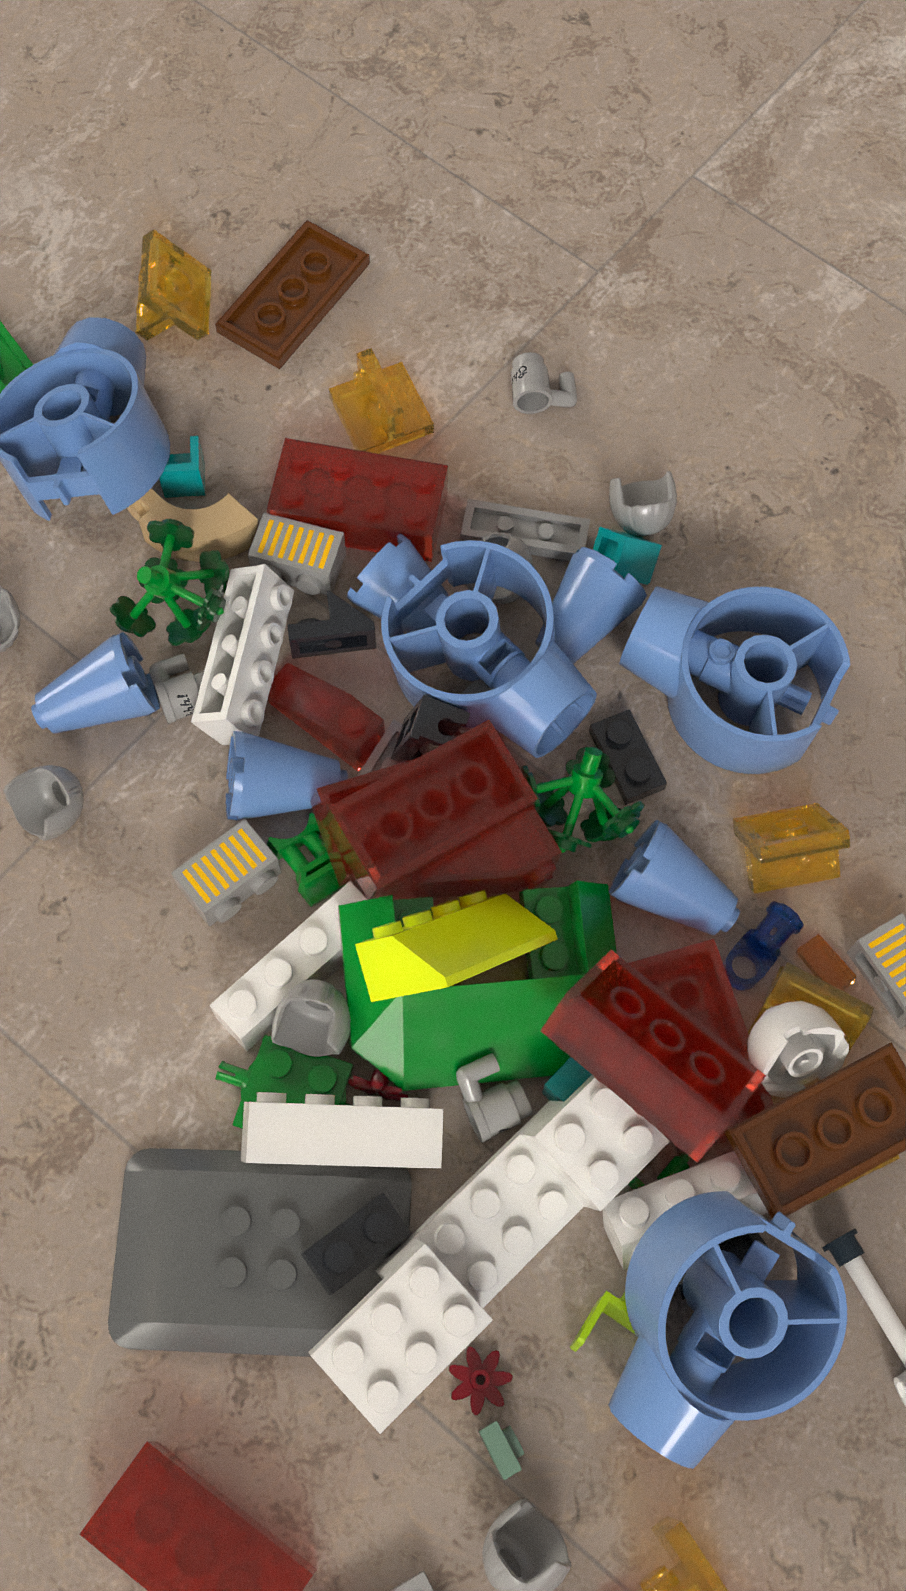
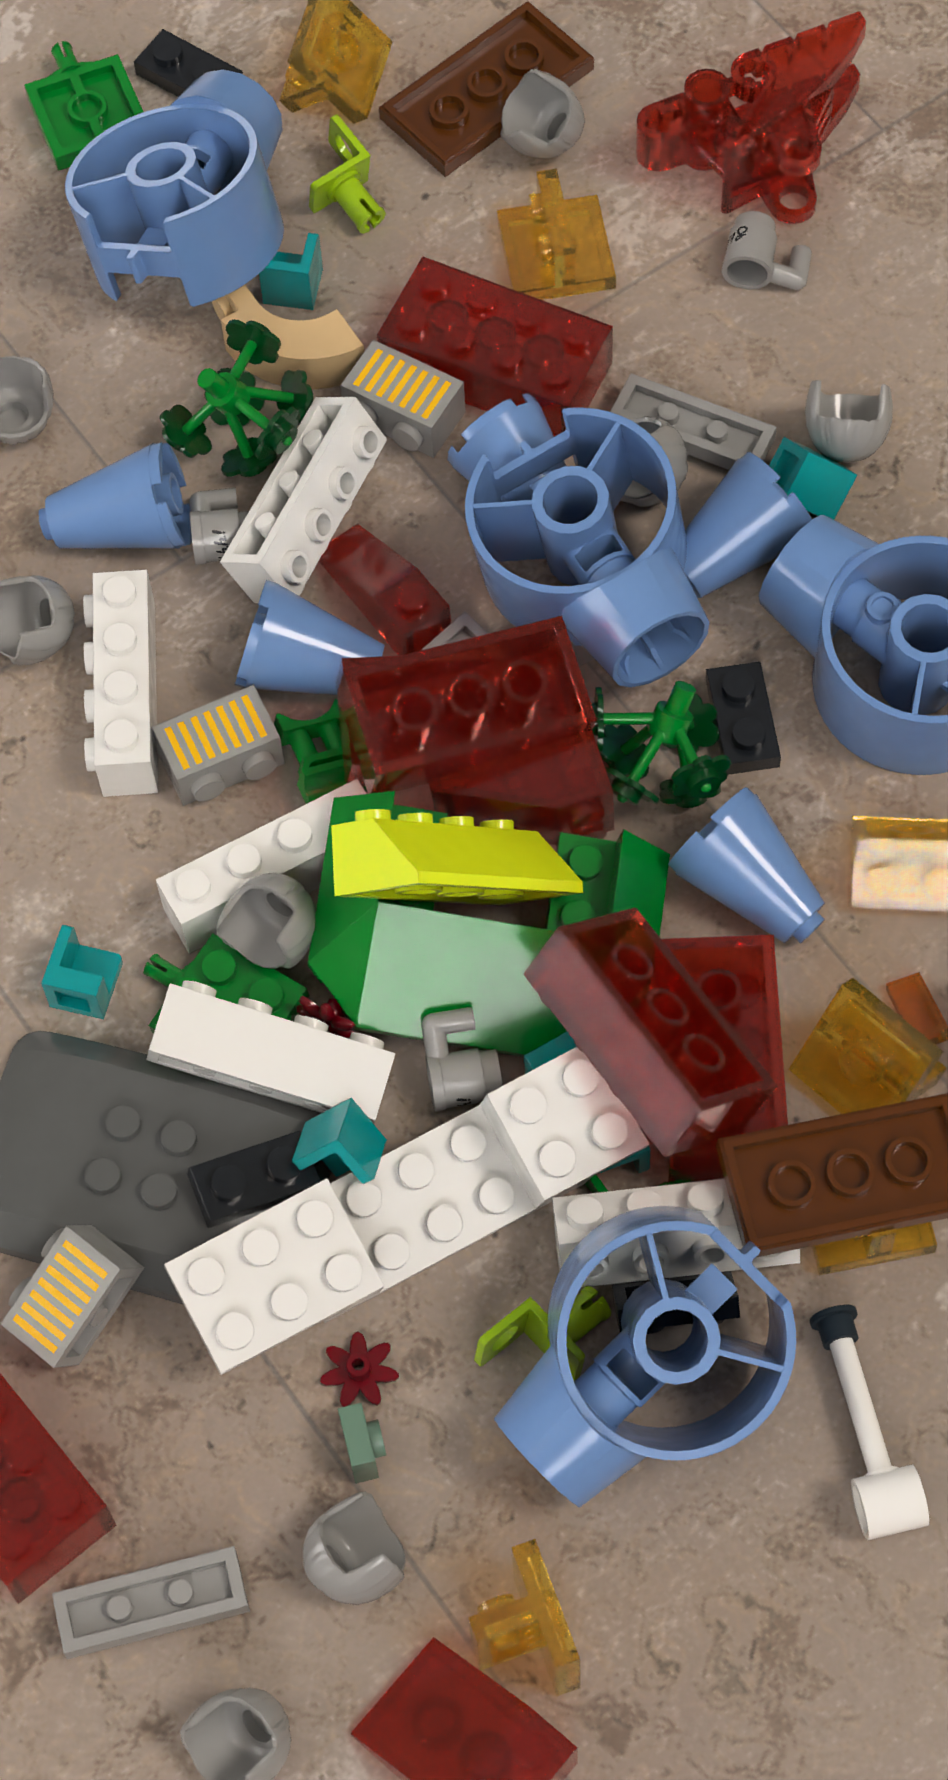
camera: 20 degrees right, 5 degrees down
(48, 318) = (176, 63): none -> black plate
(137, 837) = (124, 683): none -> white brick
(165, 1094) = (80, 976): none -> teal panel
(205, 388) = (346, 180): none -> lime bracket
(232, 1385) = (71, 1294): none -> light grey brick
(343, 632) = (430, 501): black slope -> none
(344, 308) = (542, 116): none -> light grey hair
(419, 1192) = (343, 1141): none -> teal panel
(428, 722) = (500, 609): black hinge -> none
(521, 291) = (774, 137): none -> clear red piece
(761, 946) = (840, 963): clear blue connector -> none
(795, 1046) = (831, 1070): white cylinder -> none

